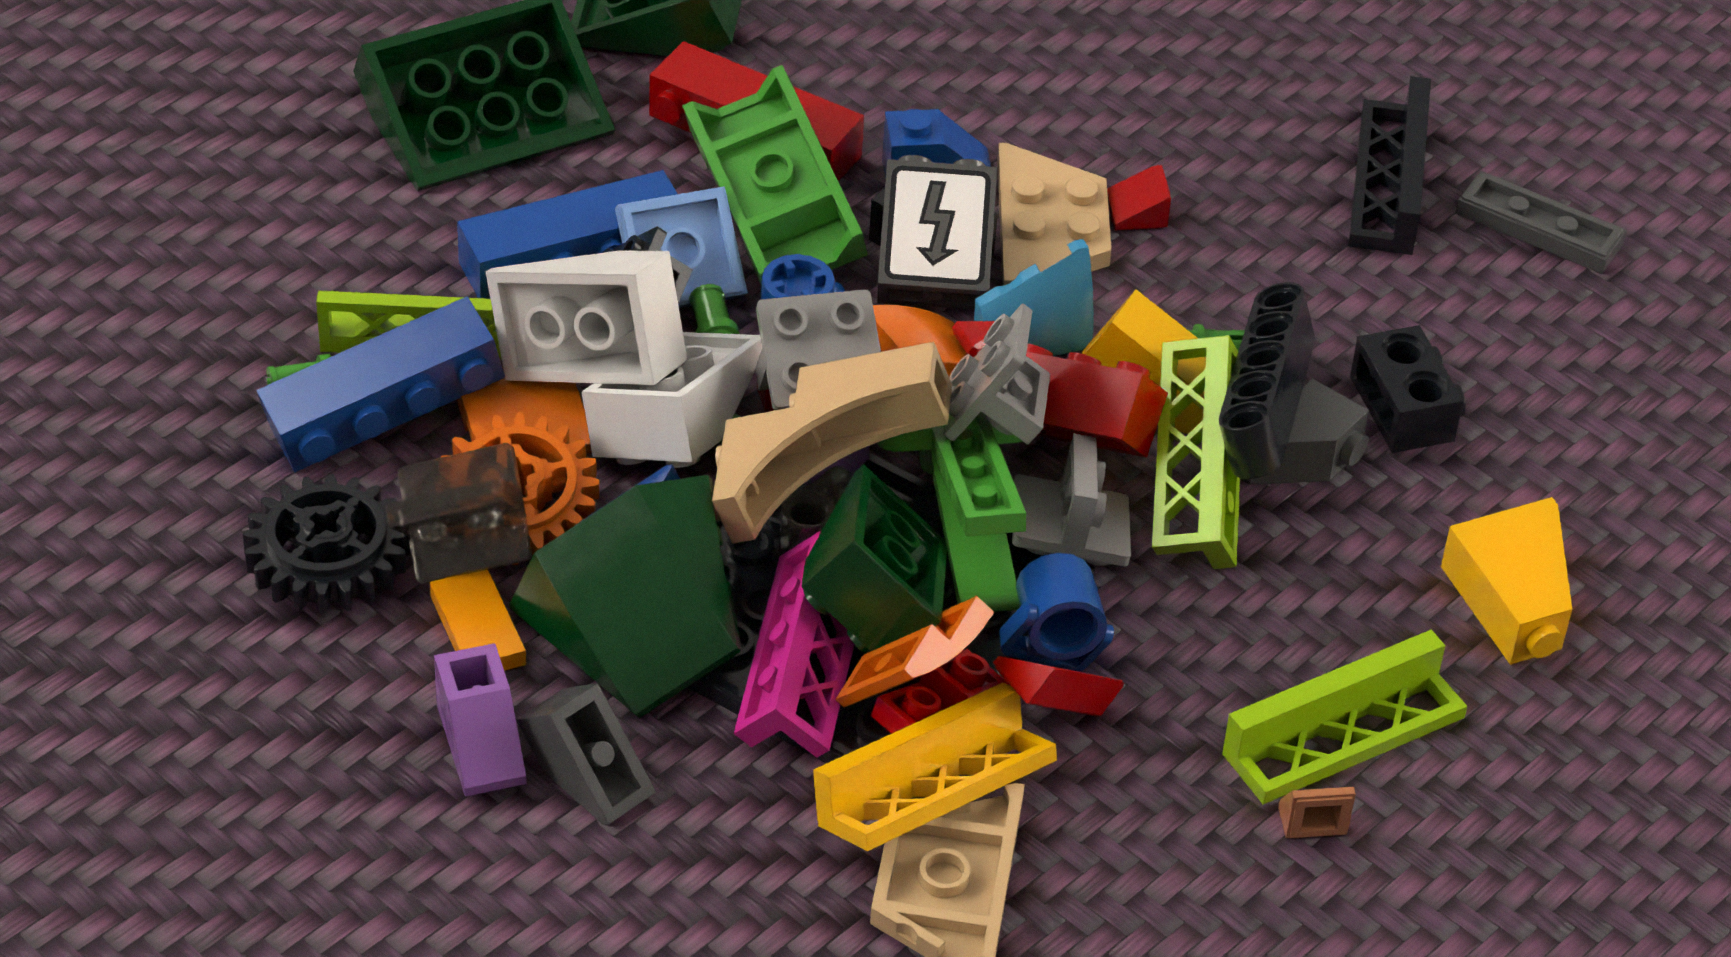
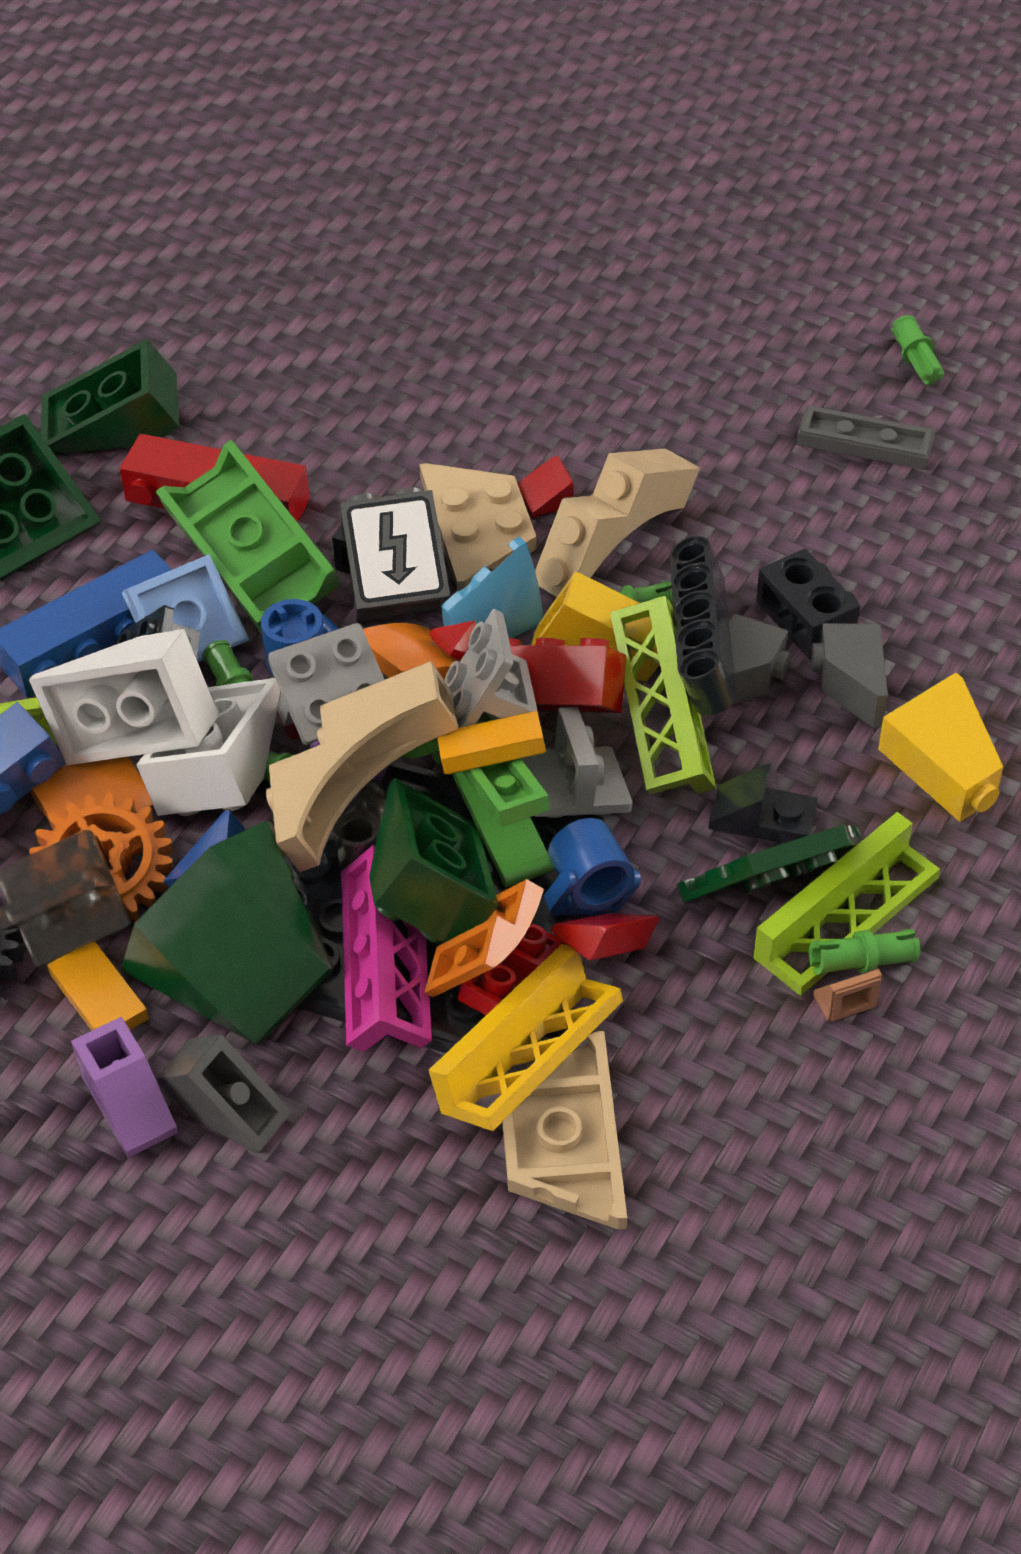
camera: 10 degrees left, 5 degrees up
(929, 135) = (363, 473): blue slope -> none
(981, 447) = (491, 743): none -> light orange tile
(1227, 222) = (628, 493): none -> tan arch
(1256, 651) = (772, 864): none -> dark green wing
(1272, 598) = (753, 810): none -> black slope
(1348, 769) = (864, 951): none -> bright green pin
(1408, 166) = (751, 413): black fence -> none
(1434, 468) = (853, 669): none -> dark grey slope
(1636, 134) = (917, 349): none -> bright green axle

